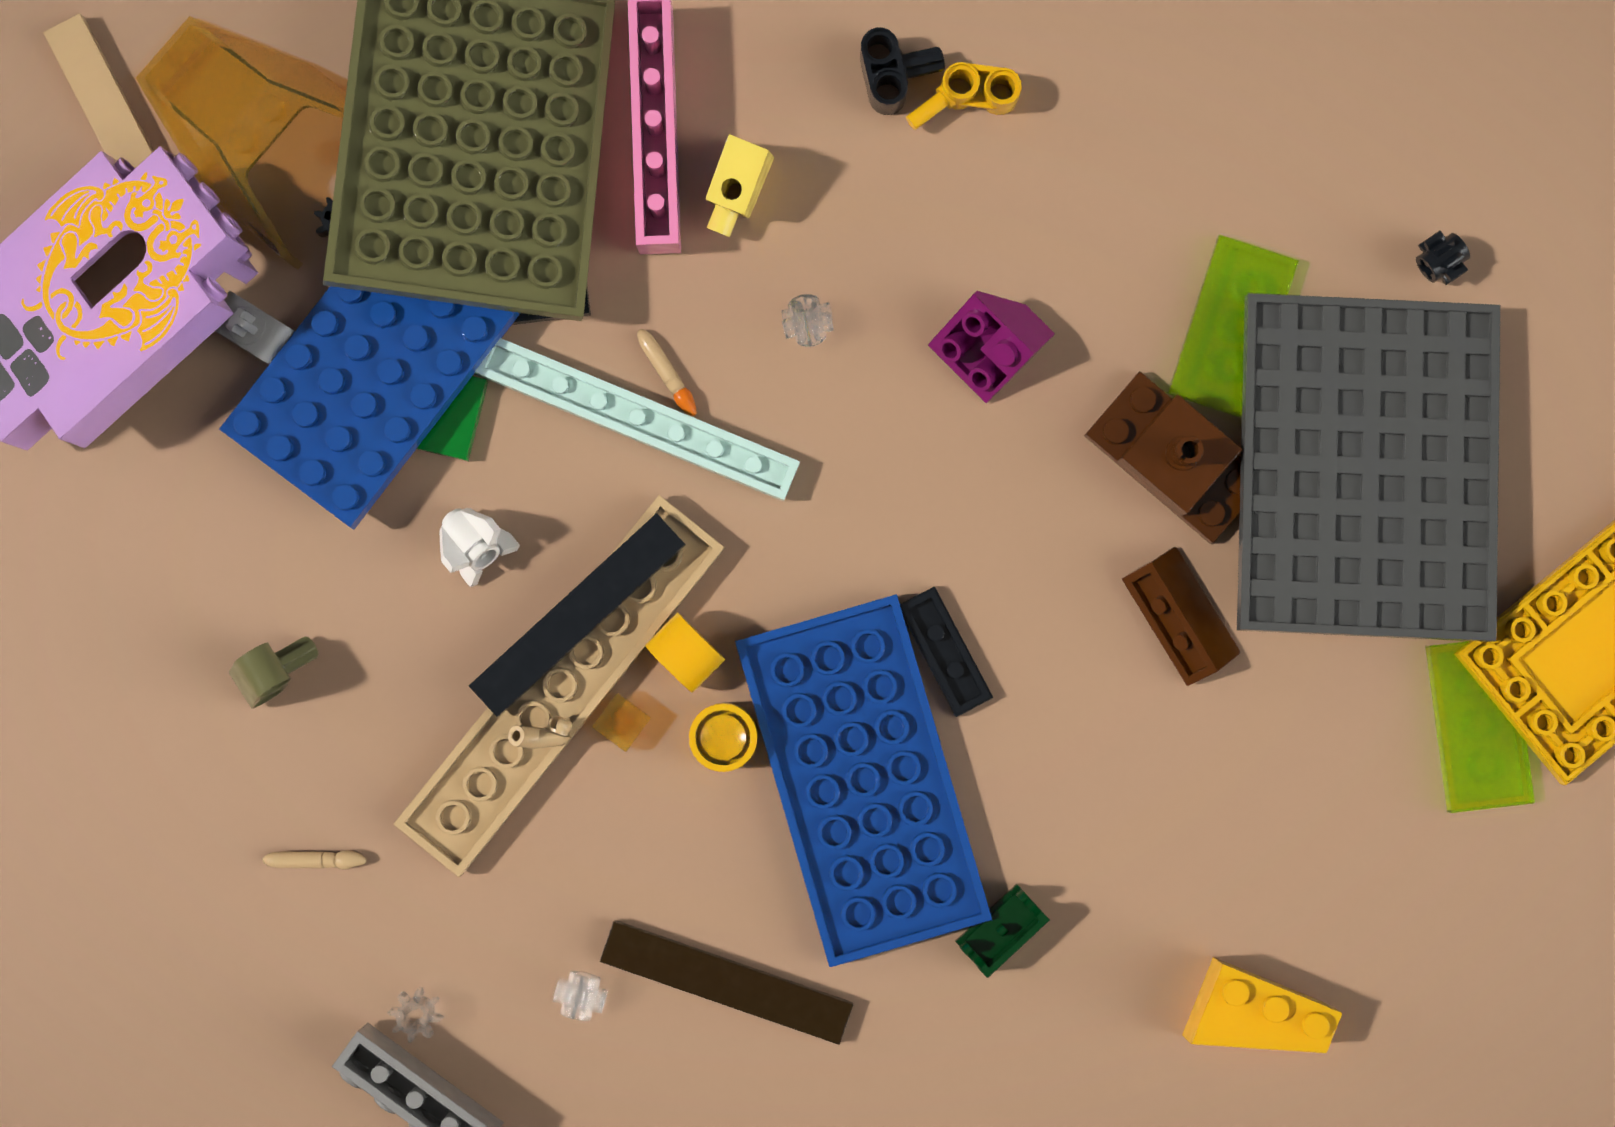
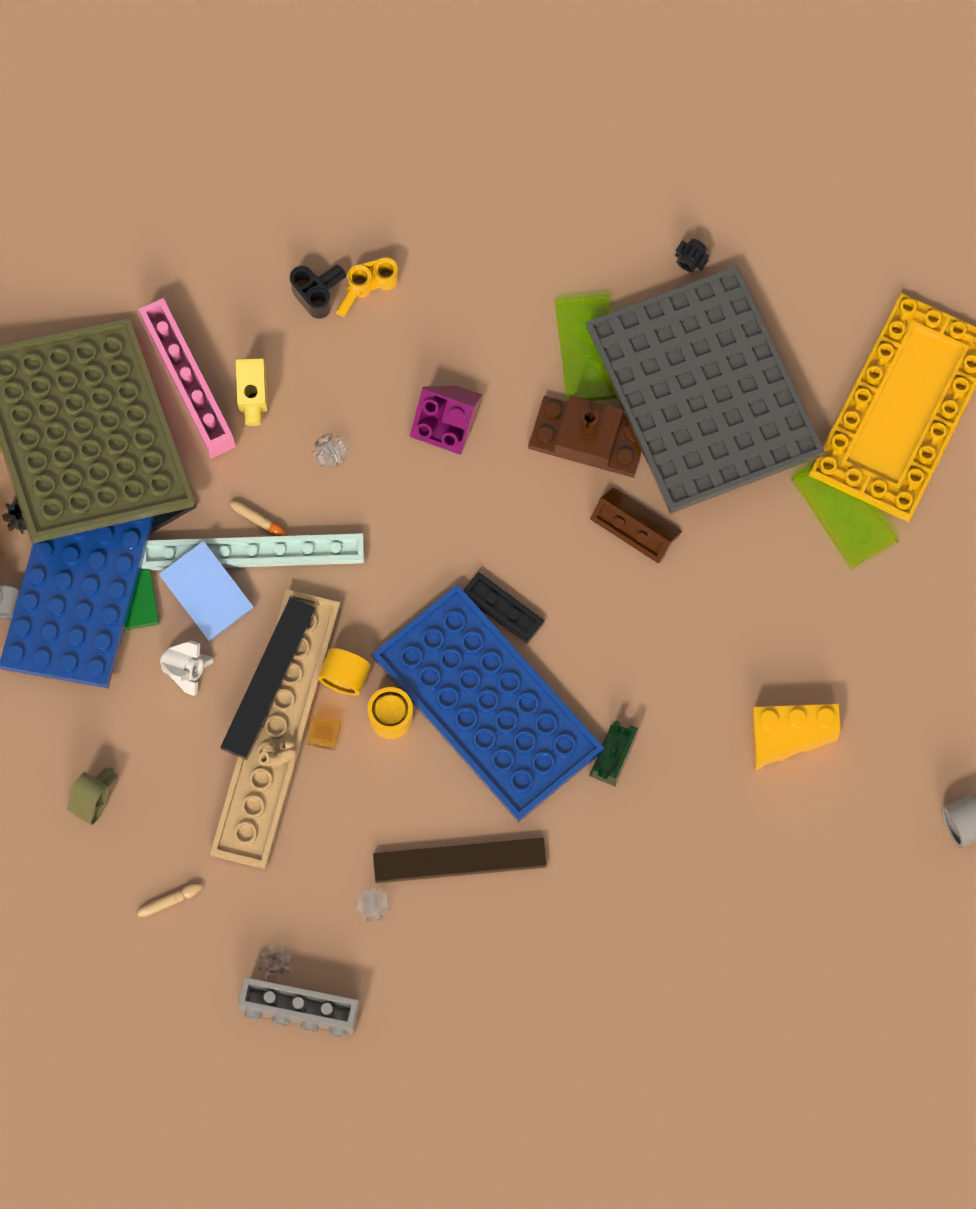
camera: 20 degrees left, 15 degrees down
(548, 447) = (206, 591): none -> light blue tile

